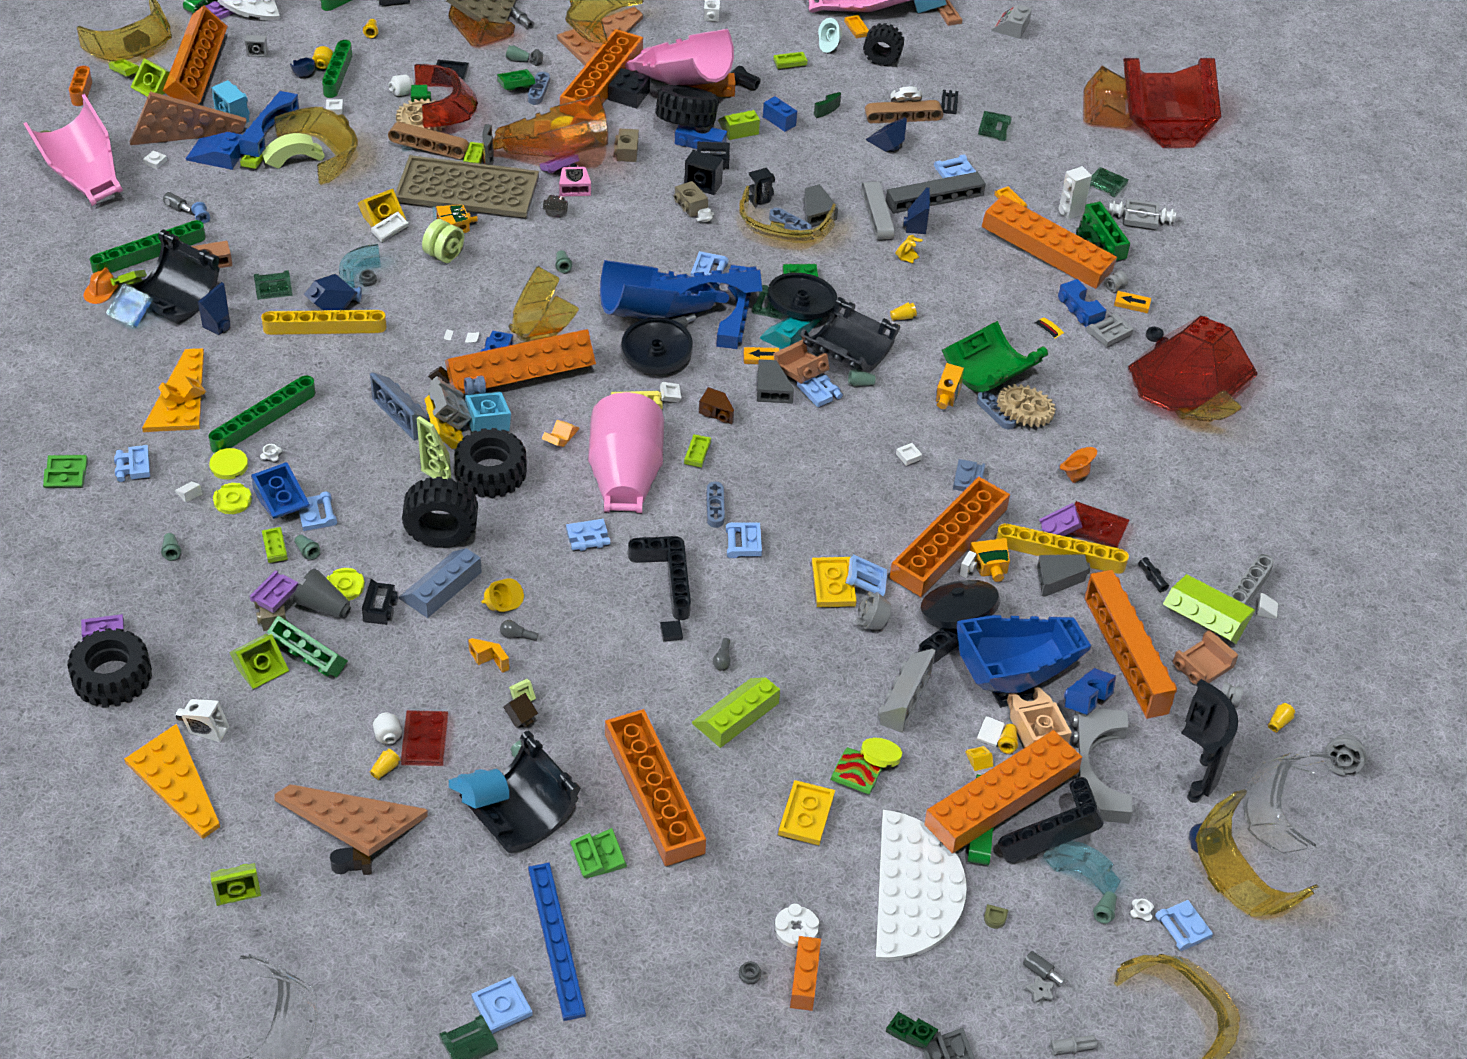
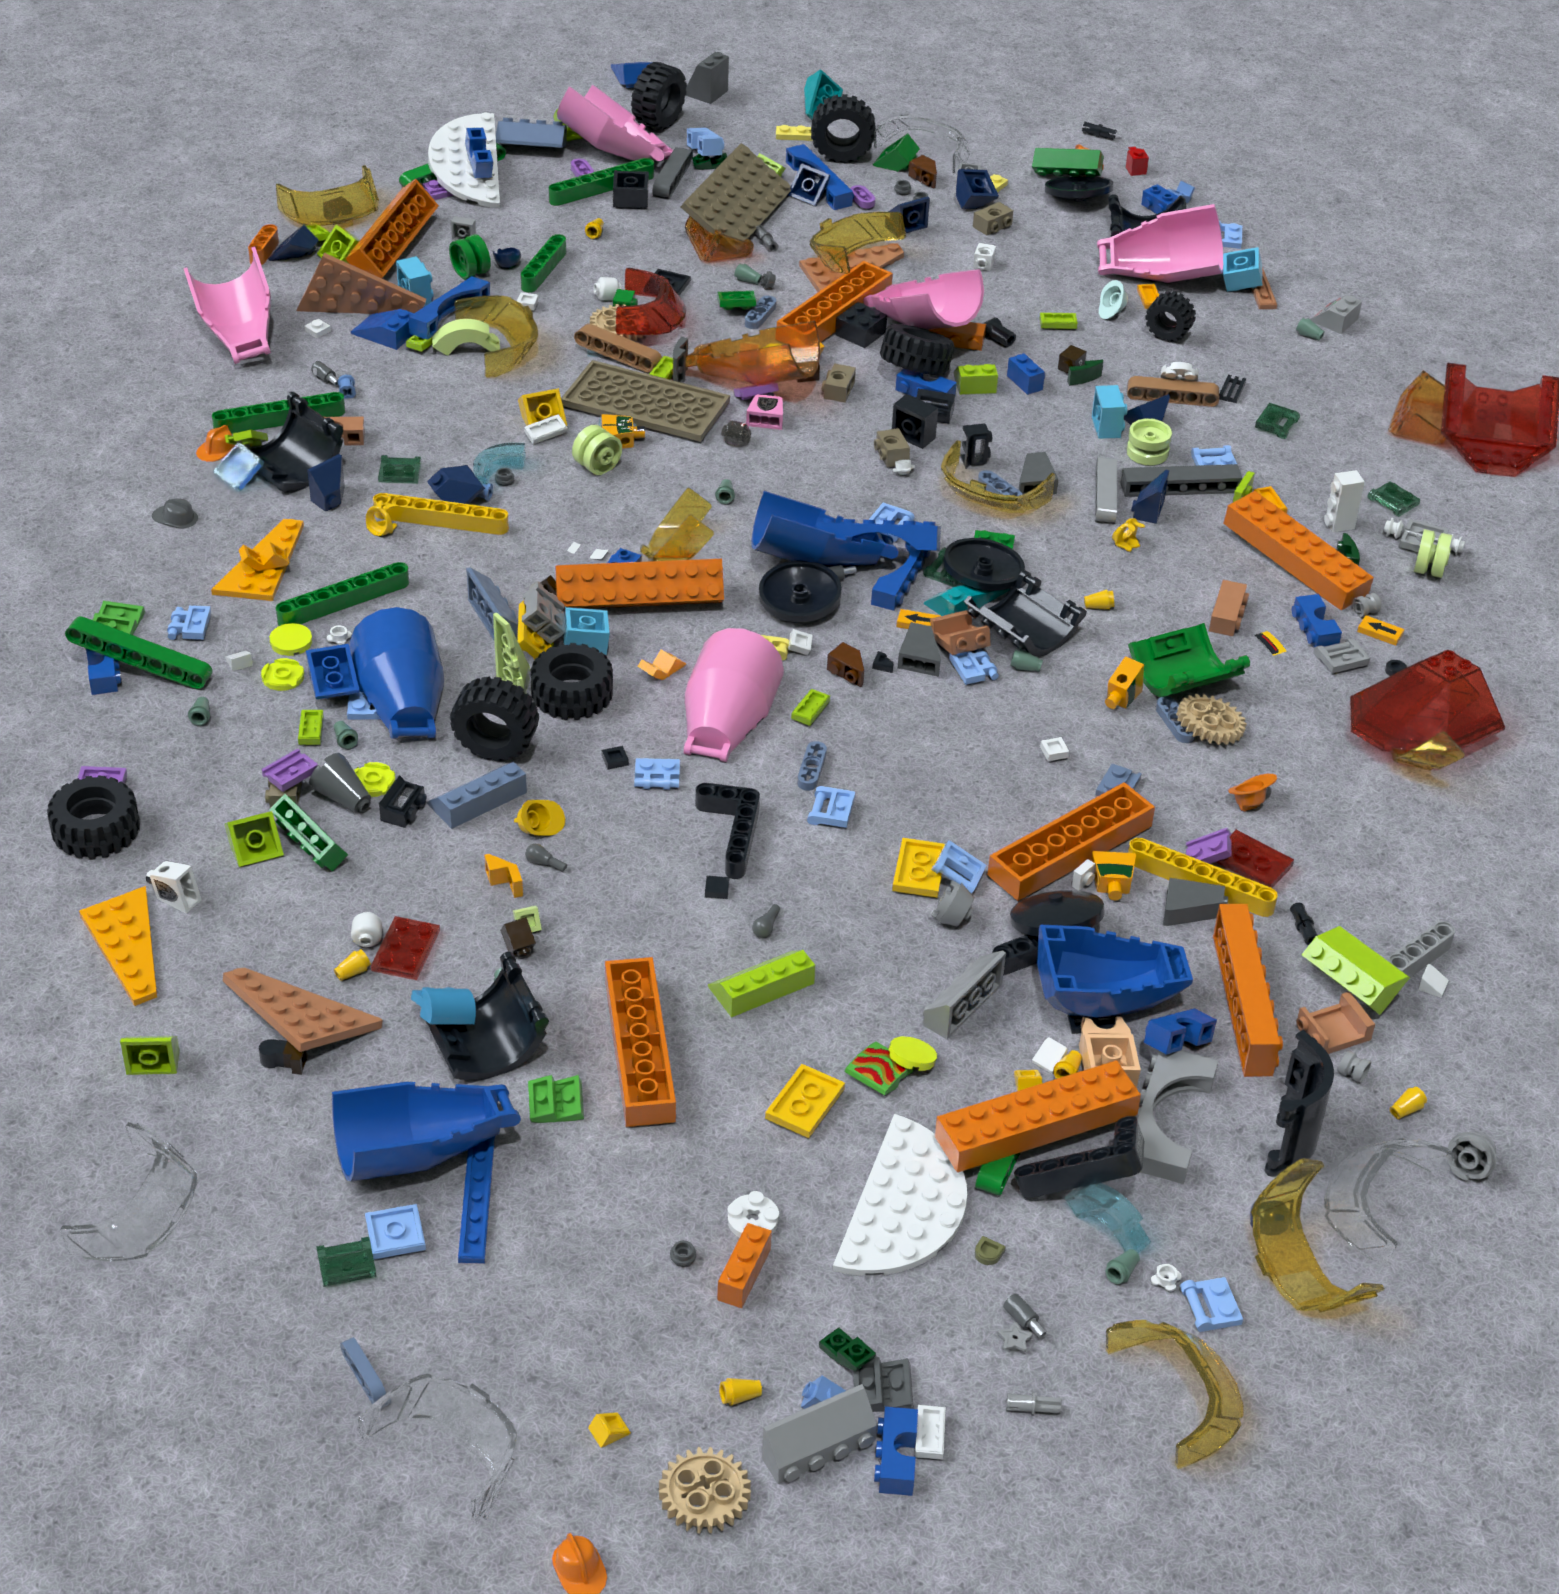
camera: 15 degrees right, 5 degrees down
(72, 528) = (102, 673): none -> blue arch
(85, 359) = (176, 513): none -> dark grey piece
(99, 501) = (138, 652): none -> green beam
(109, 82) = (296, 245): none -> dark blue slope
(272, 72) = (469, 256): none -> green wheel
(275, 342) = (381, 527): none -> yellow piece
(322, 57) = (530, 248): yellow head -> none
(338, 479) = (399, 670): none -> blue windscreen
(474, 385) = (579, 599): sand blue wheel -> none
(491, 907) = (412, 1126): none -> blue windscreen
(547, 526) = (615, 757): none -> black tile
(744, 399) = (882, 663): none -> black tile
(813, 94) = (1071, 357): none -> dark brown brick
(859, 139) = (1108, 411): none -> medium azure brick
(900, 161) = (1149, 441): none -> yellowish green wheel
(988, 193) = (1245, 486): none -> lime plate
(995, 39) = (1309, 329): none -> sand green cone
(1009, 302) = (1229, 608): none -> nougat brick
(1109, 233) = (1372, 548): green brick -> none
(1156, 228) = (1433, 553): none -> yellowish green wheel

